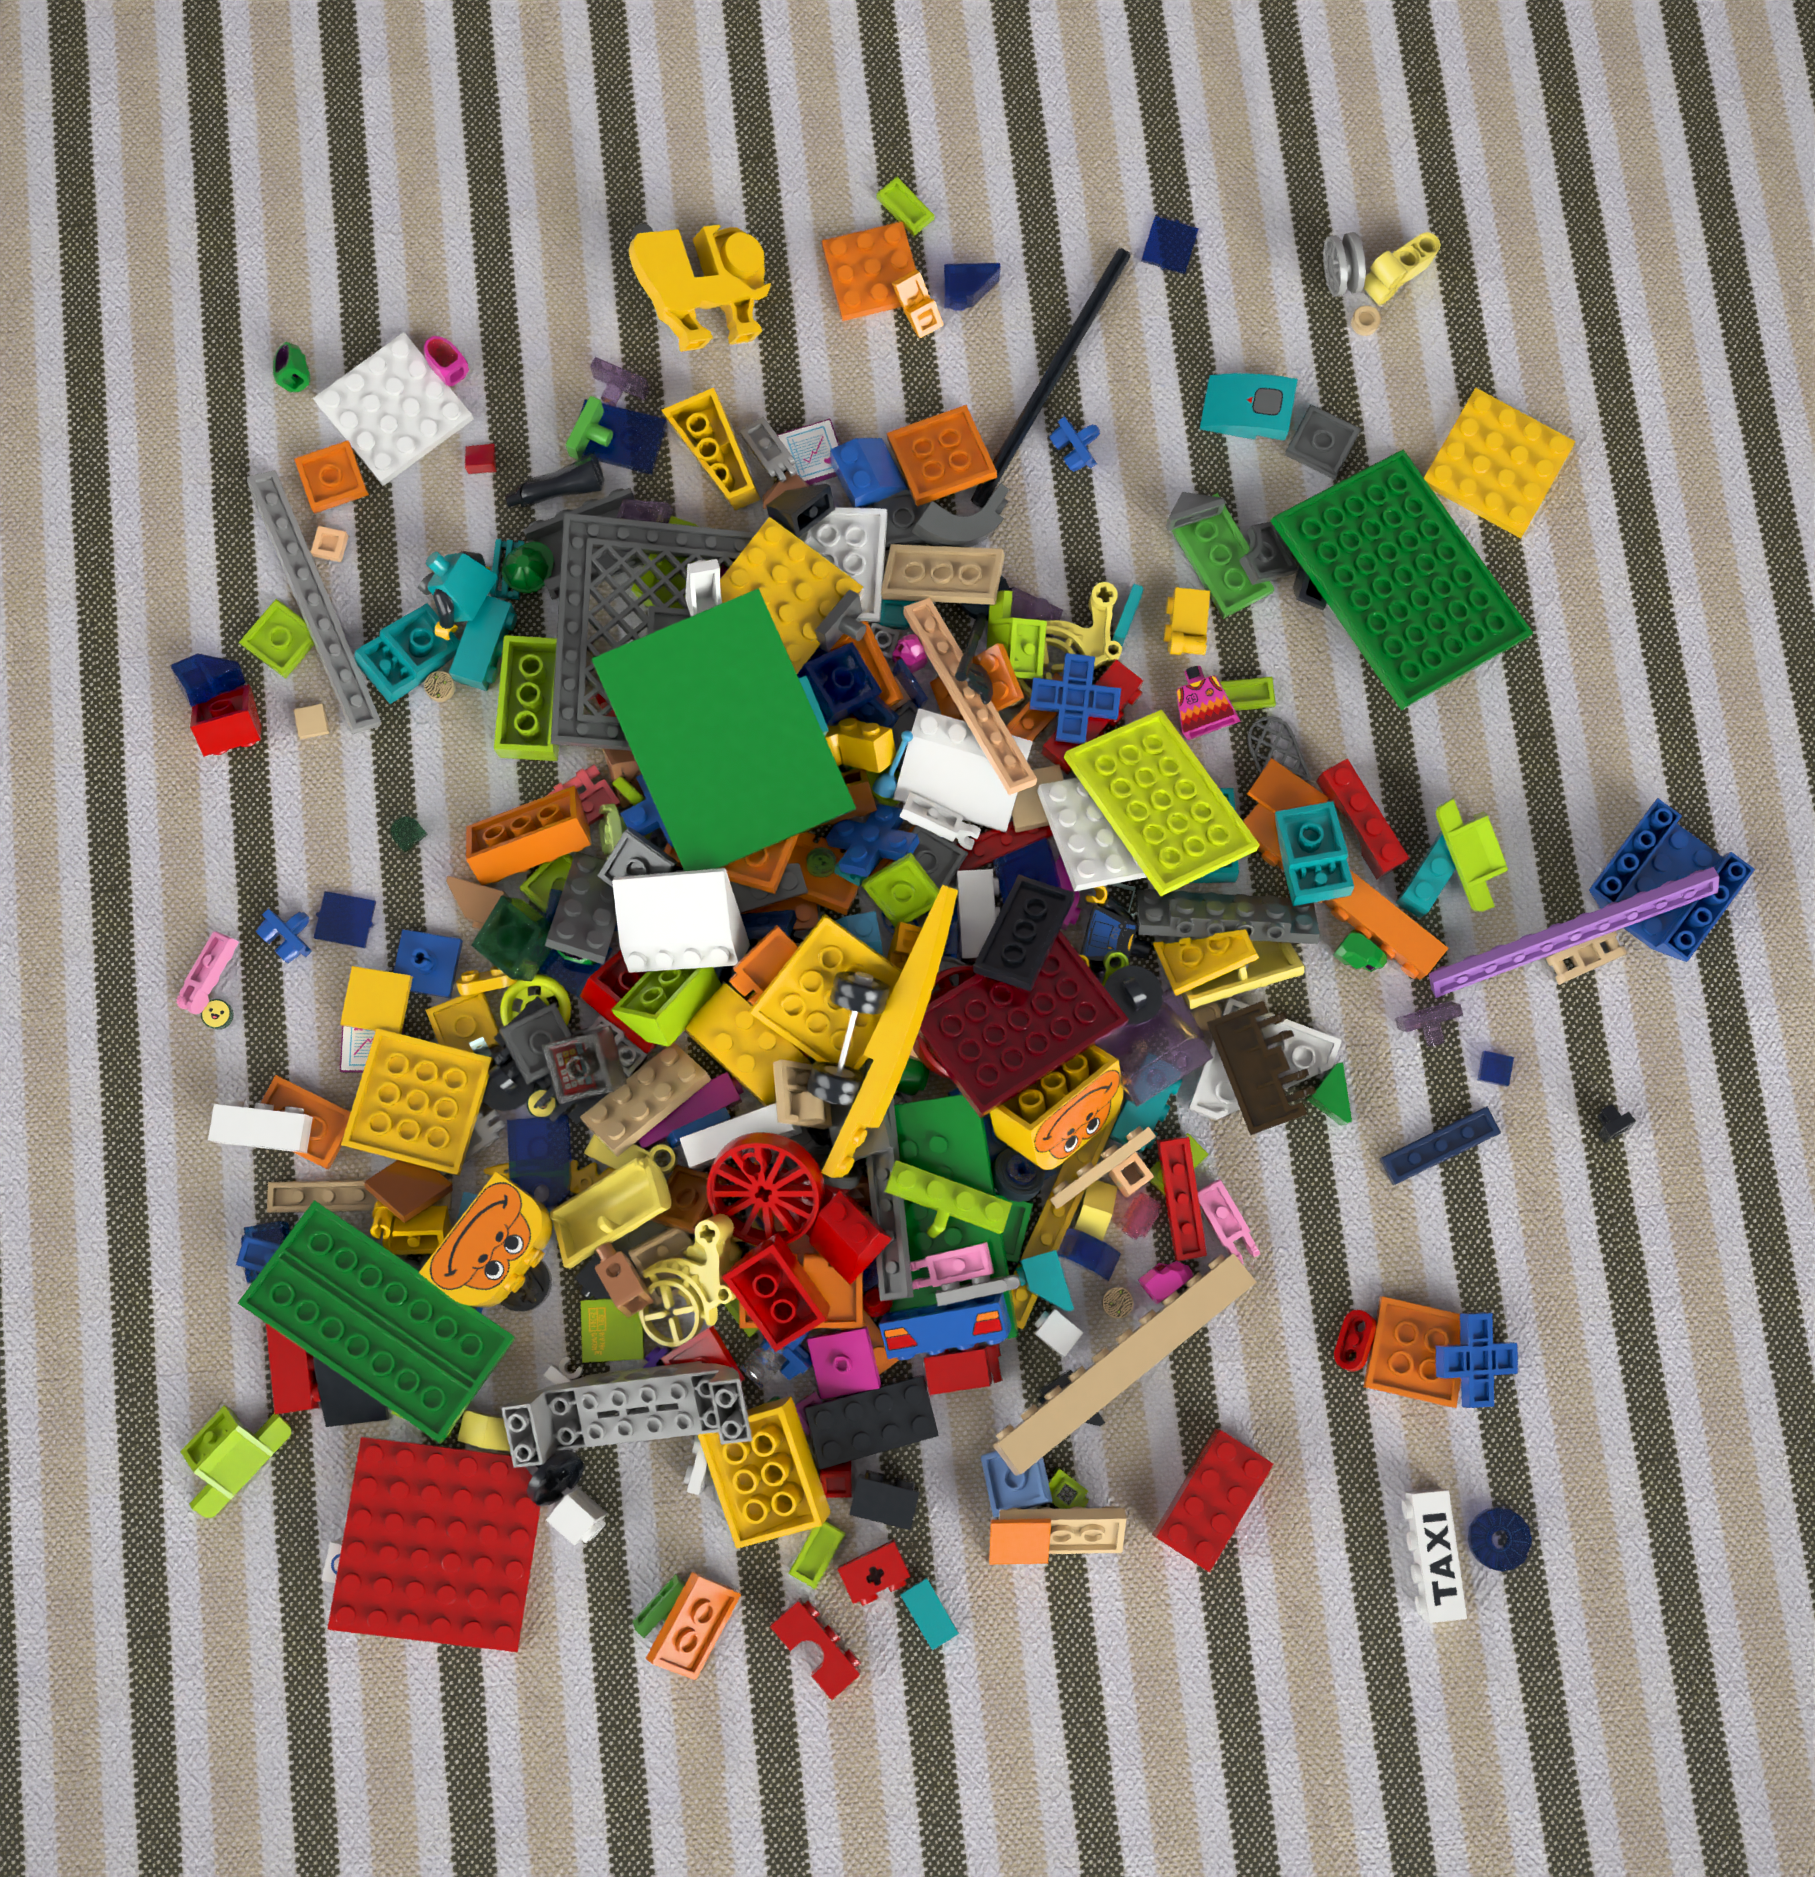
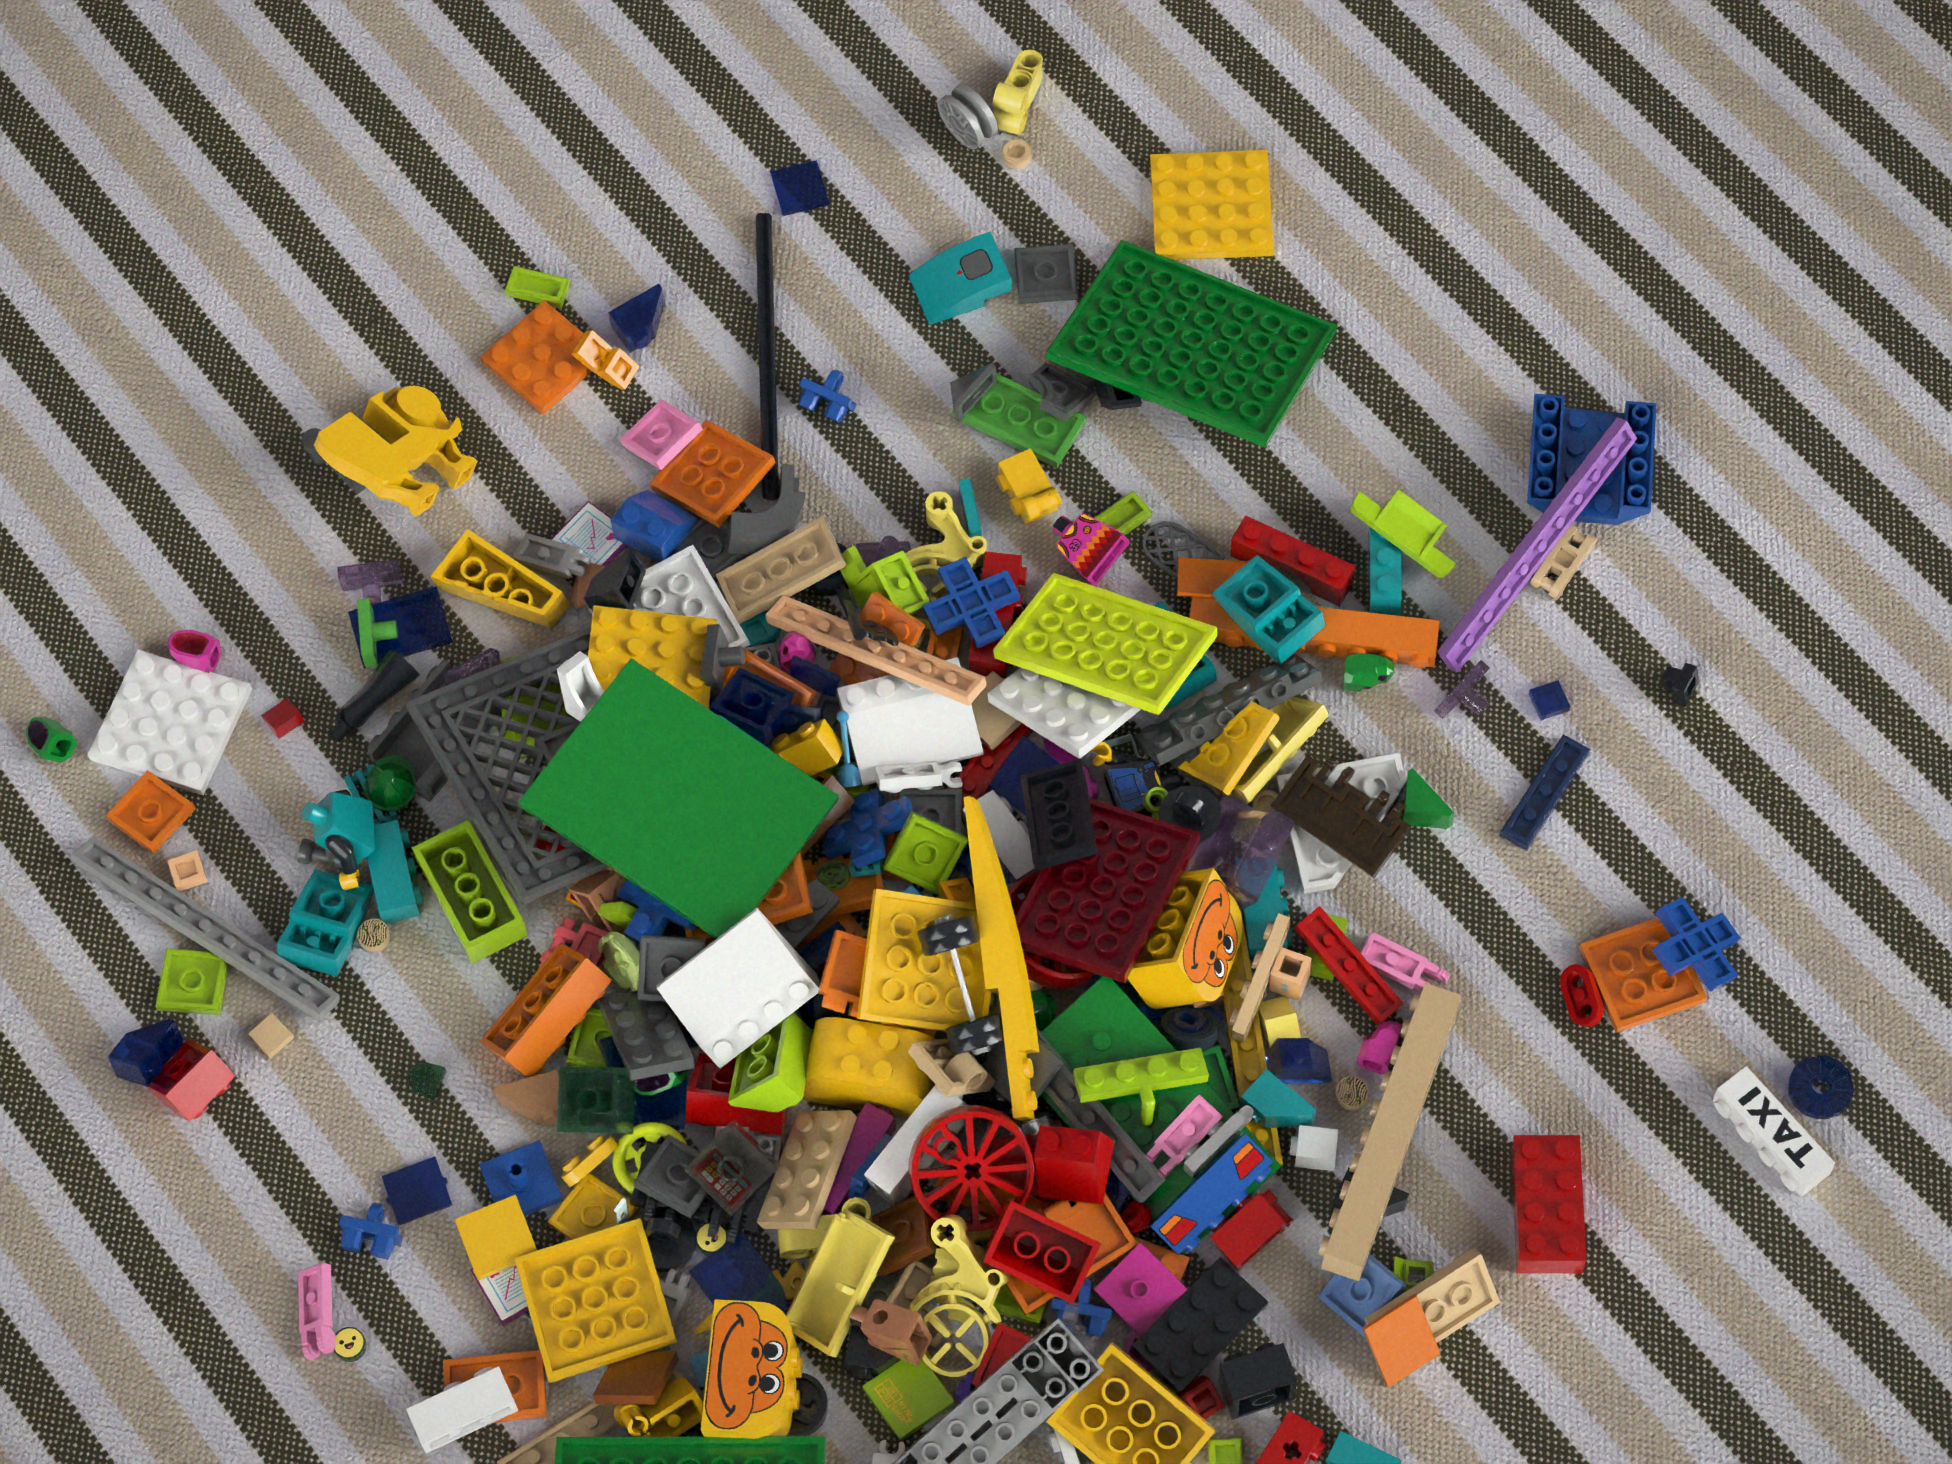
camera: 25 degrees left, 15 degrees down
(921, 396) = (661, 434): none -> bright pink plate
(1140, 1216) = (1322, 1006): clear pink brick -> none

